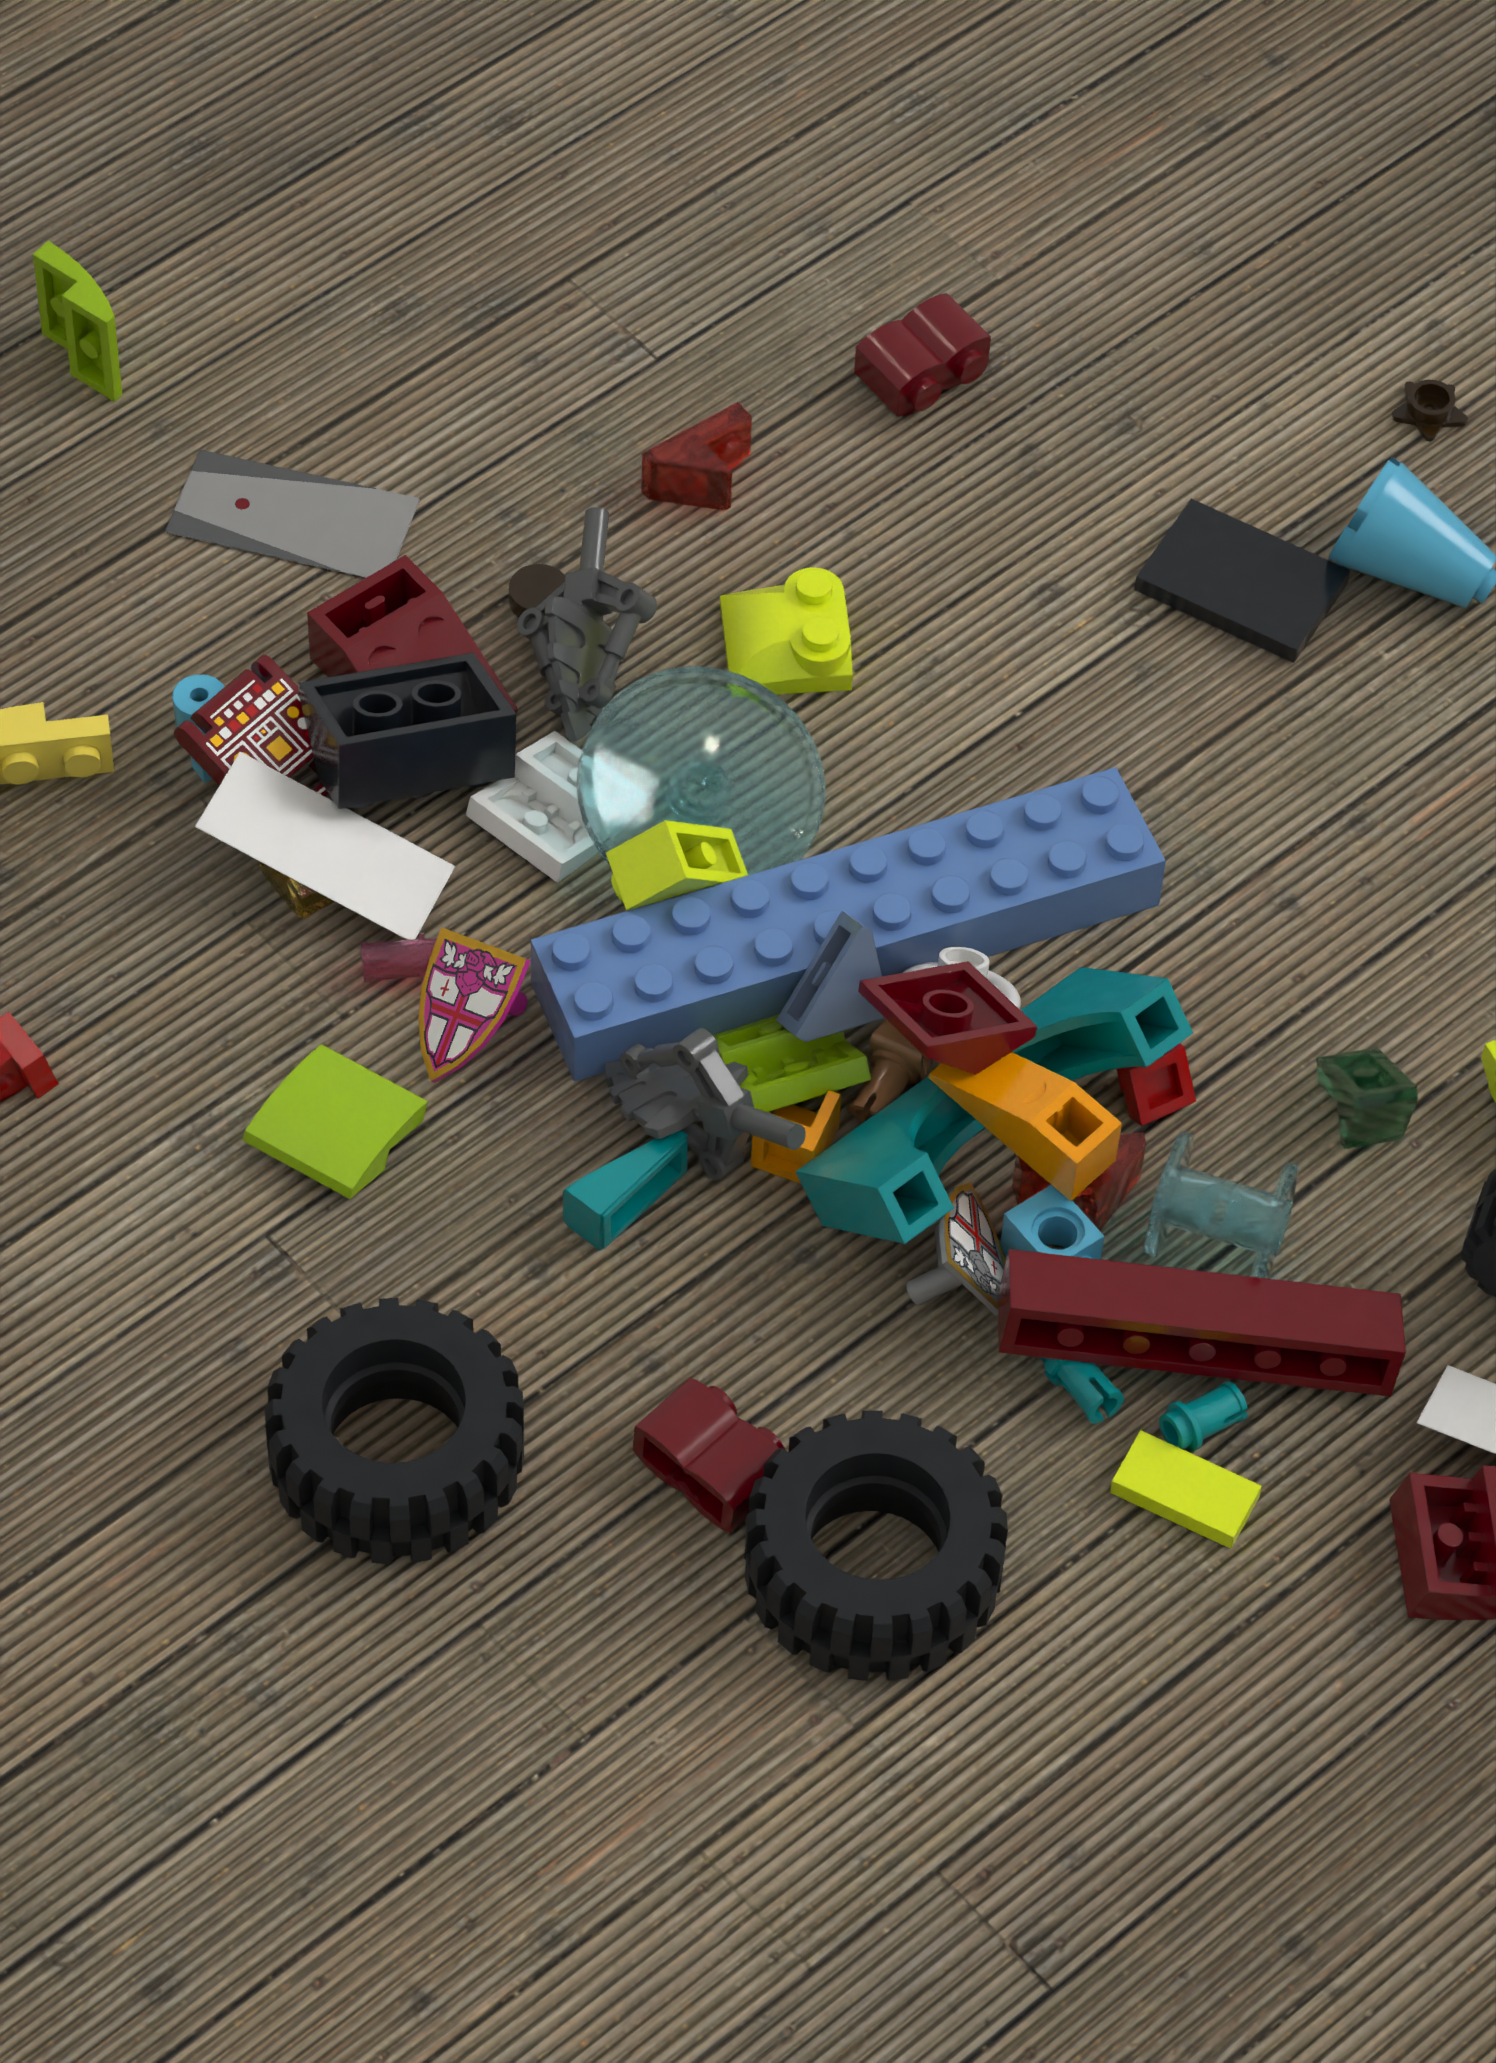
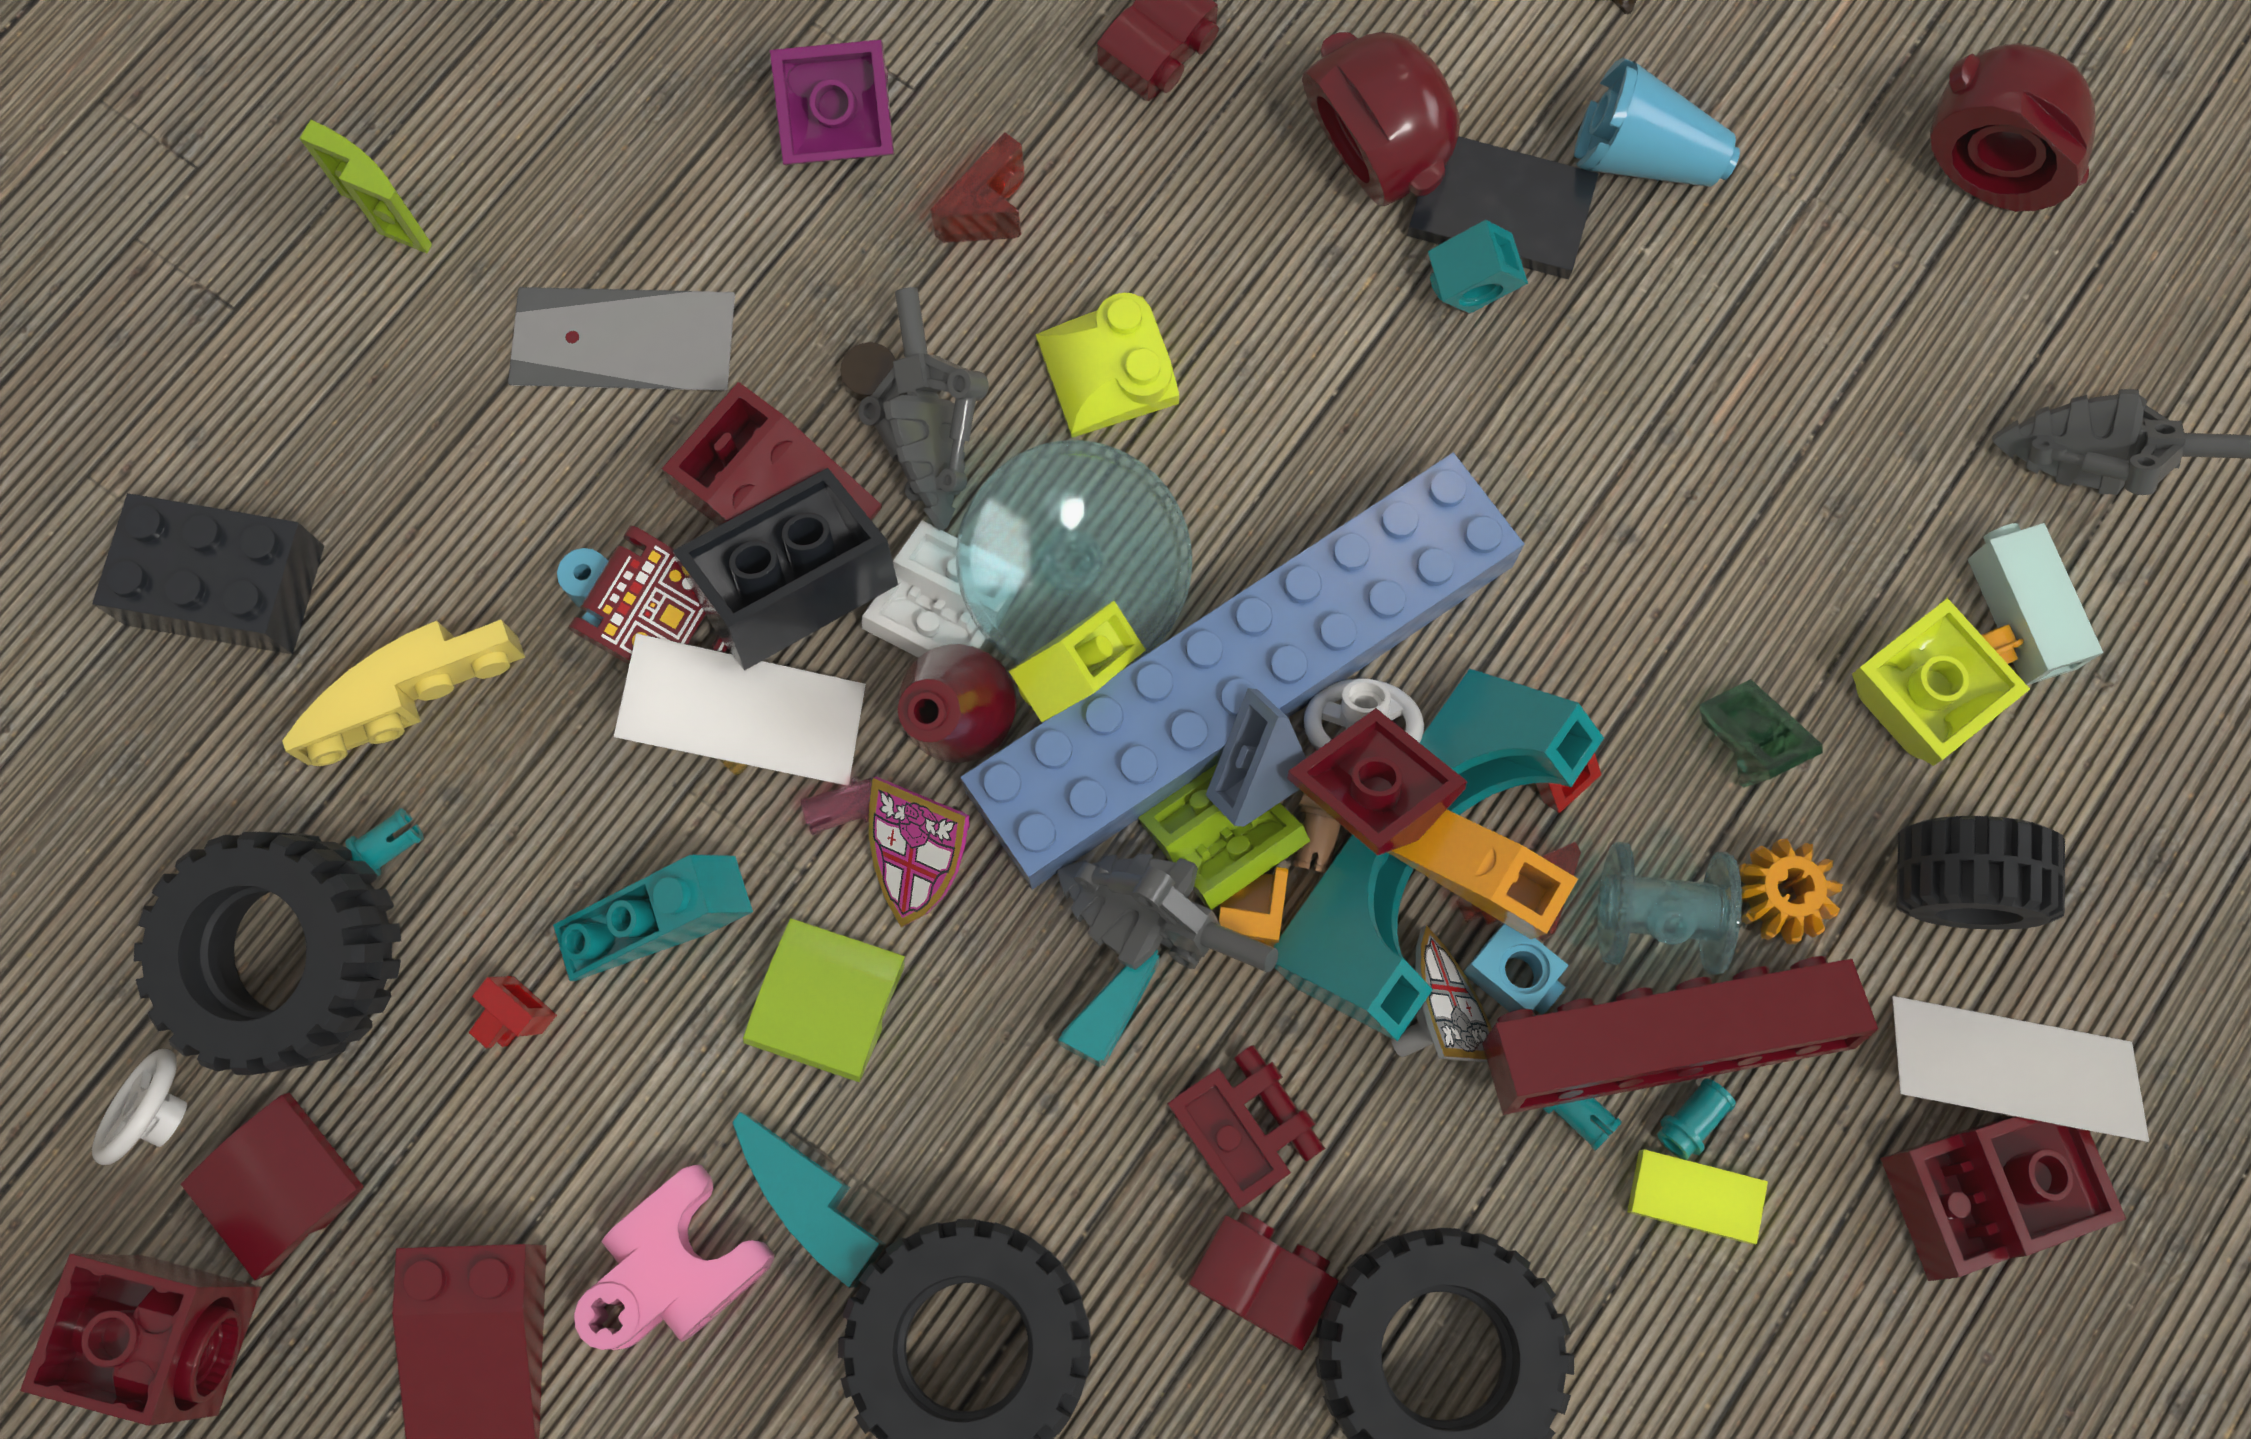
camera: 10 degrees left, 20 degrees up
(106, 1318) = (662, 1274): none -> bright pink piece
(186, 1009) = (654, 914): none -> teal slope
(266, 1275) = (807, 1202): none -> teal slope
(539, 881) = (957, 703): none -> dark red cone
(569, 344) = (832, 102): none -> magenta slope
(715, 1329) = (1229, 1136): none -> dark red plate
(1132, 459) = (1384, 112): none -> dark red piece
(1193, 620) = (1476, 267): none -> teal brick
(1357, 1236) = (1807, 879): none -> light orange gear

